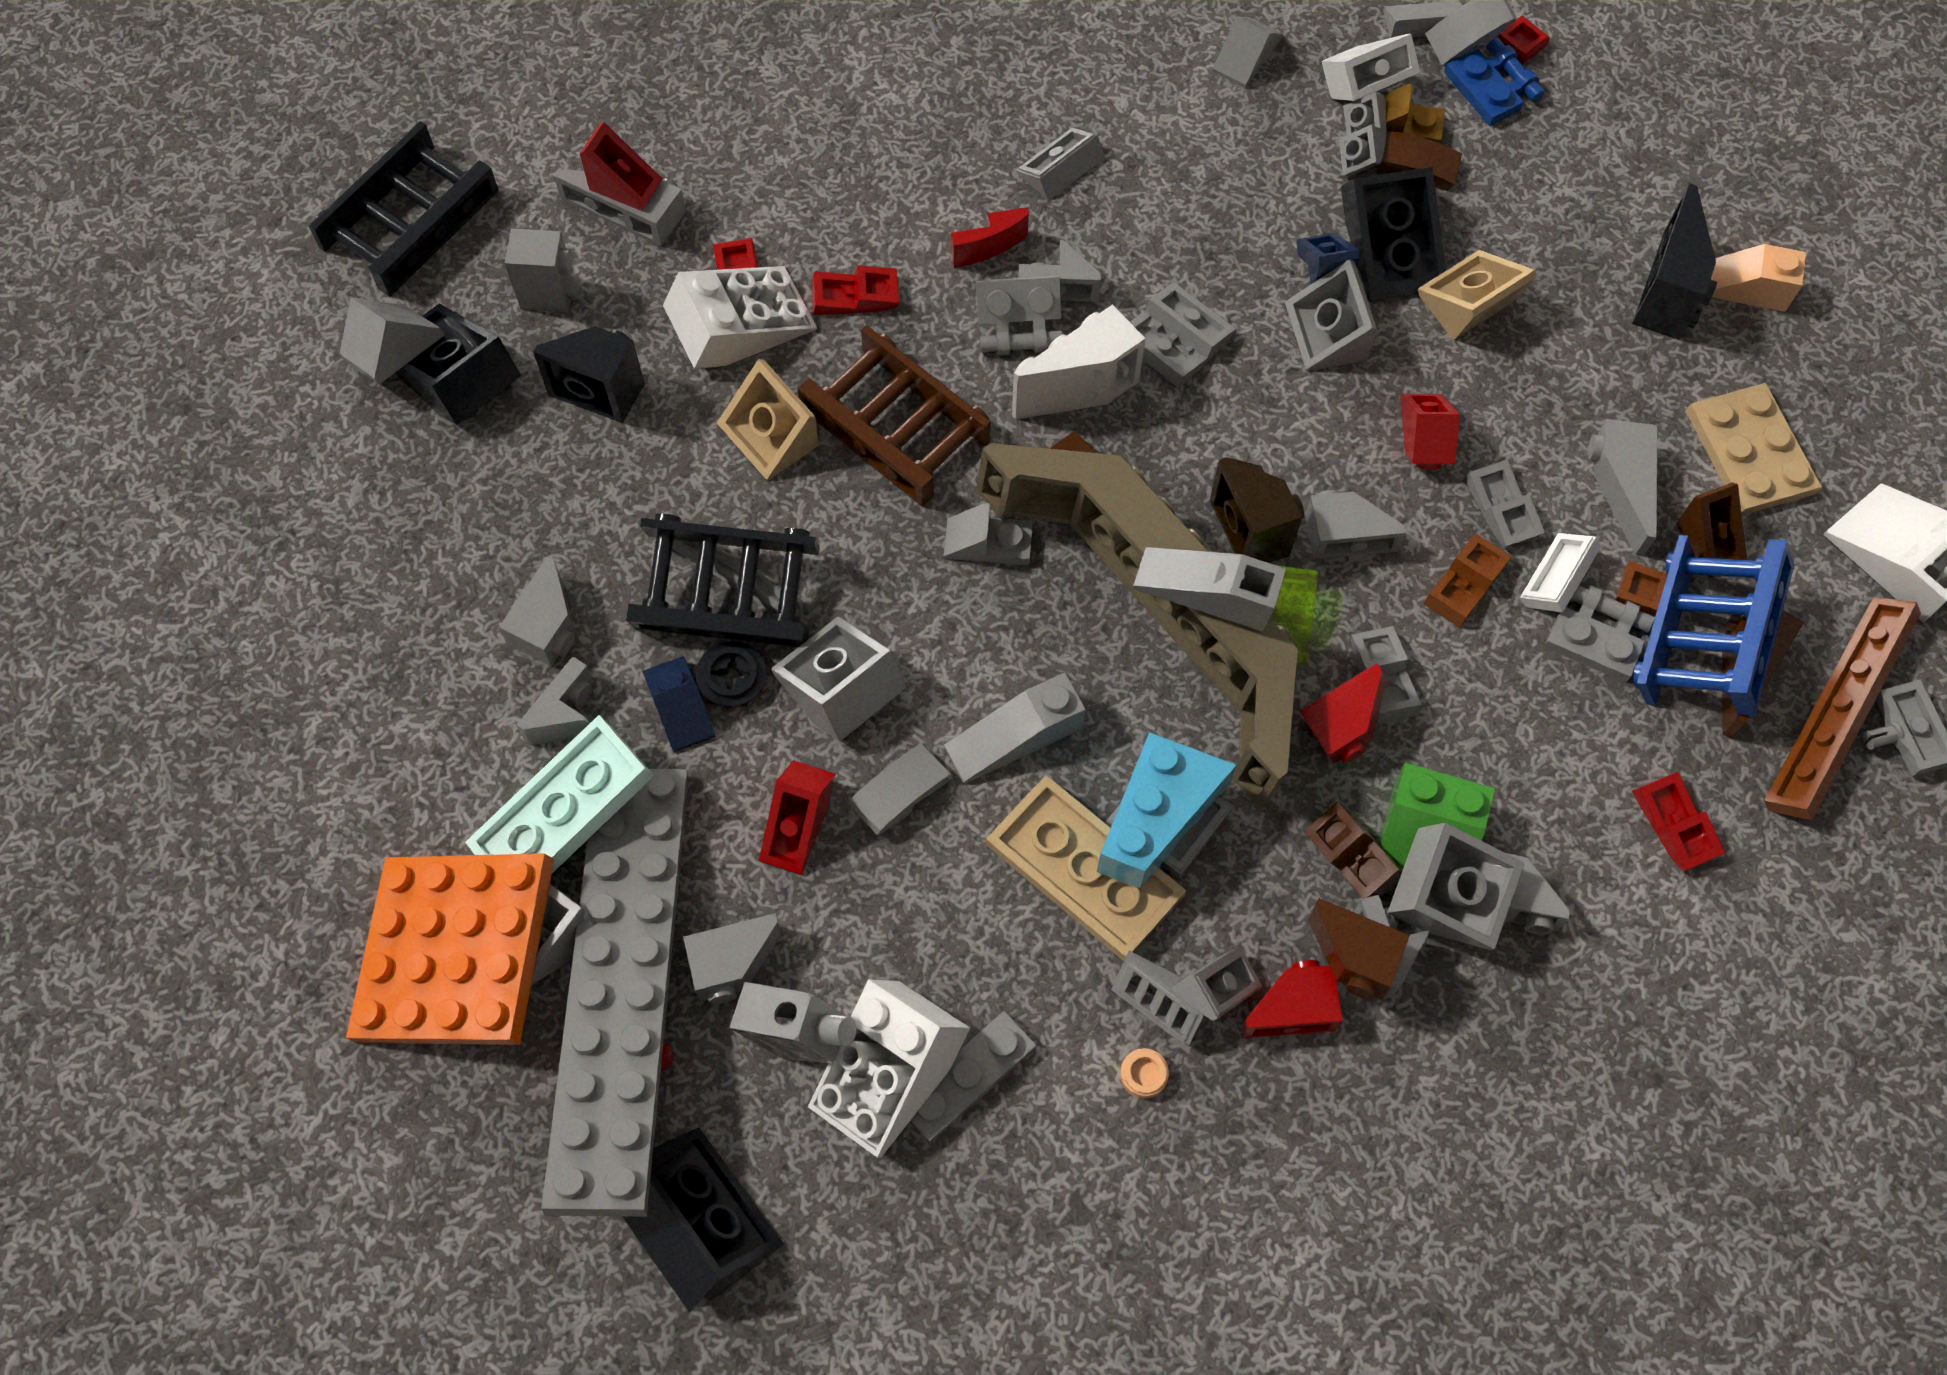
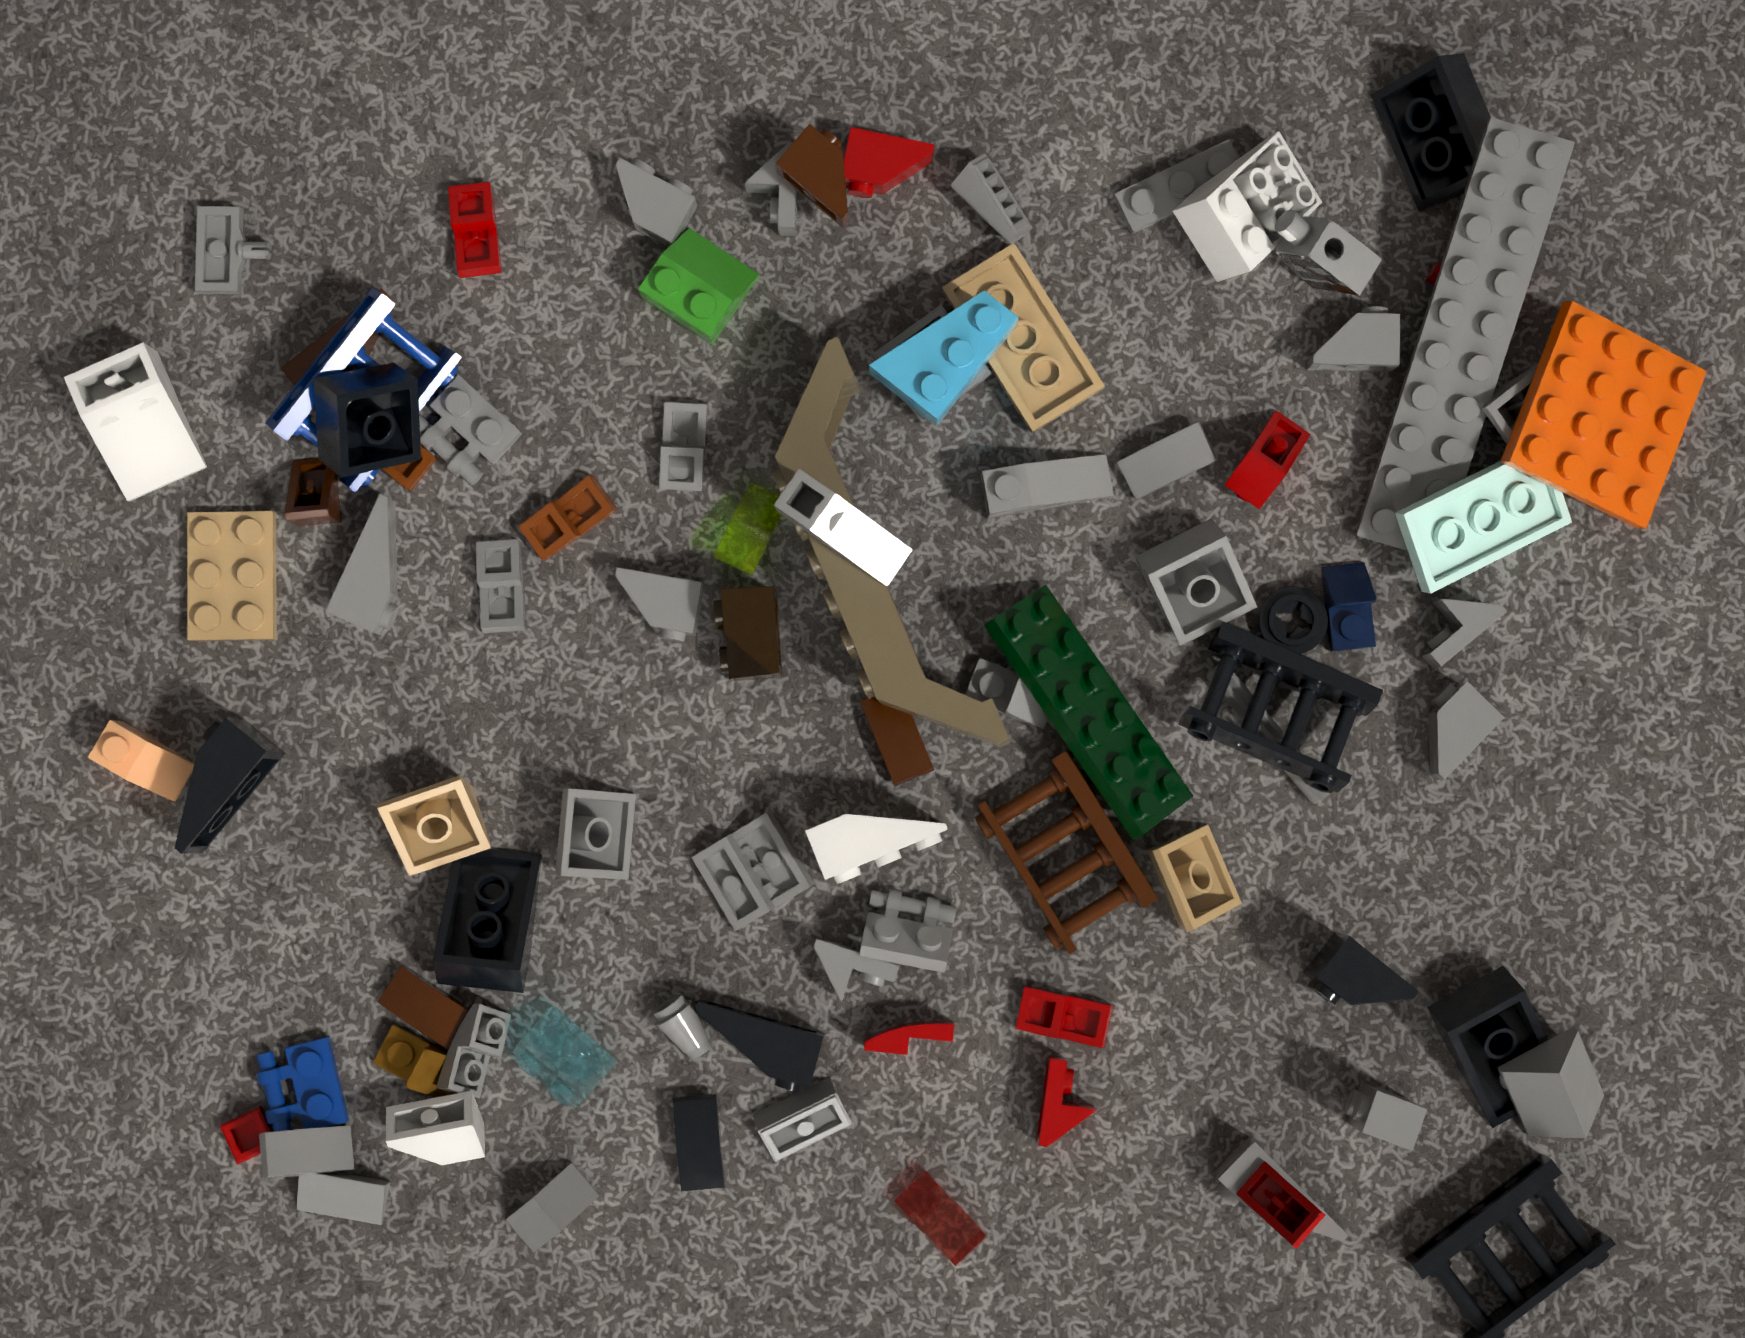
camera: 160 degrees left, 20 degrees up
(735, 254) = (1176, 1092): red tile -> none
(735, 313) = (1190, 1020): white slope -> none
(836, 215) = (1056, 1115): none -> red slope
(911, 533) = (1089, 711): none -> dark green plate
(920, 123) = (941, 1218): none -> clear red slope
(1117, 203) = (772, 1045): none -> black slope
(1144, 120) = (698, 1142): none -> black slope
(1144, 1073) = (1028, 146): light nougat tile -> none
(1192, 199) = (682, 1026): none -> light grey cone
(1219, 984) = (945, 191): light grey slope -> none
(1284, 150) = (563, 1058): none -> clear light blue bracket
(1325, 253) = (571, 910): dark blue slope -> none
(1348, 715) = (741, 404): red slope -> none
(1354, 852) = (776, 281): reddish brown slope -> none
(1429, 430) = (543, 685): red slope -> none
(1456, 886) = (711, 207): light grey slope -> none
(1560, 572) = (479, 496): white tile -> none
(1703, 579) = (367, 419): none -> black slope
(1842, 708) = (276, 288): dark orange plate -> none

